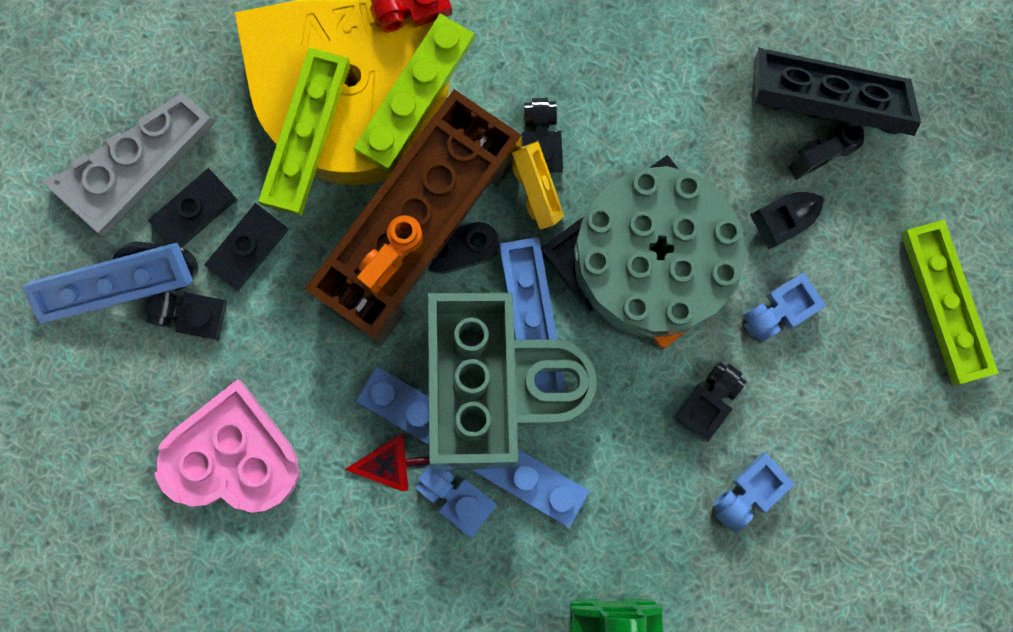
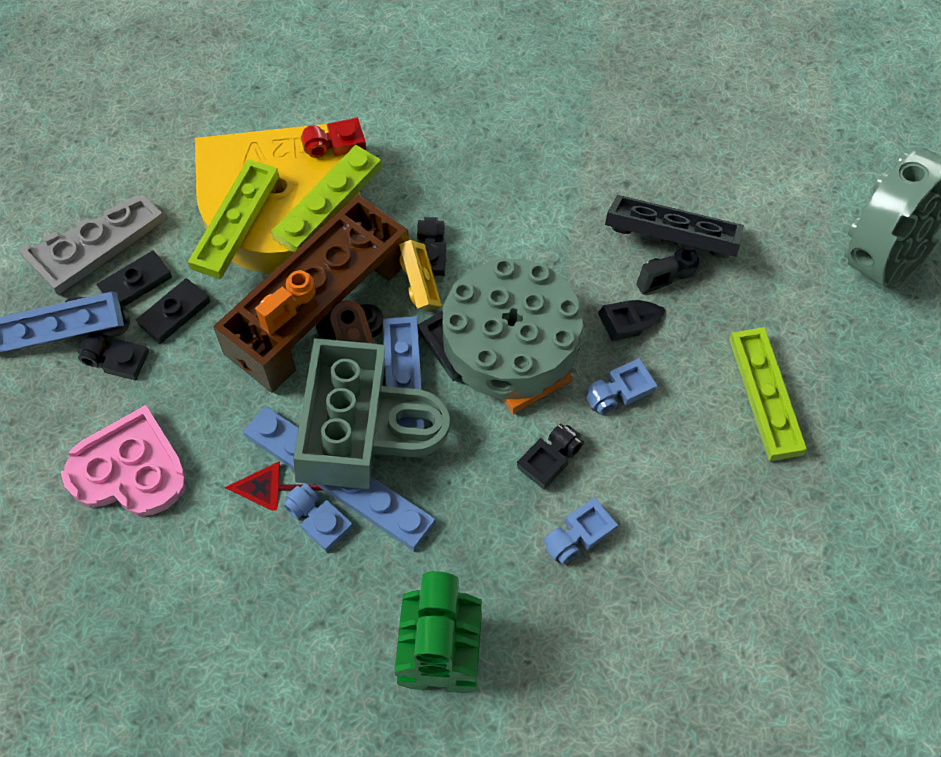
camera: 10 degrees right, 20 degrees down
(467, 264) = (353, 331): none -> reddish brown plate

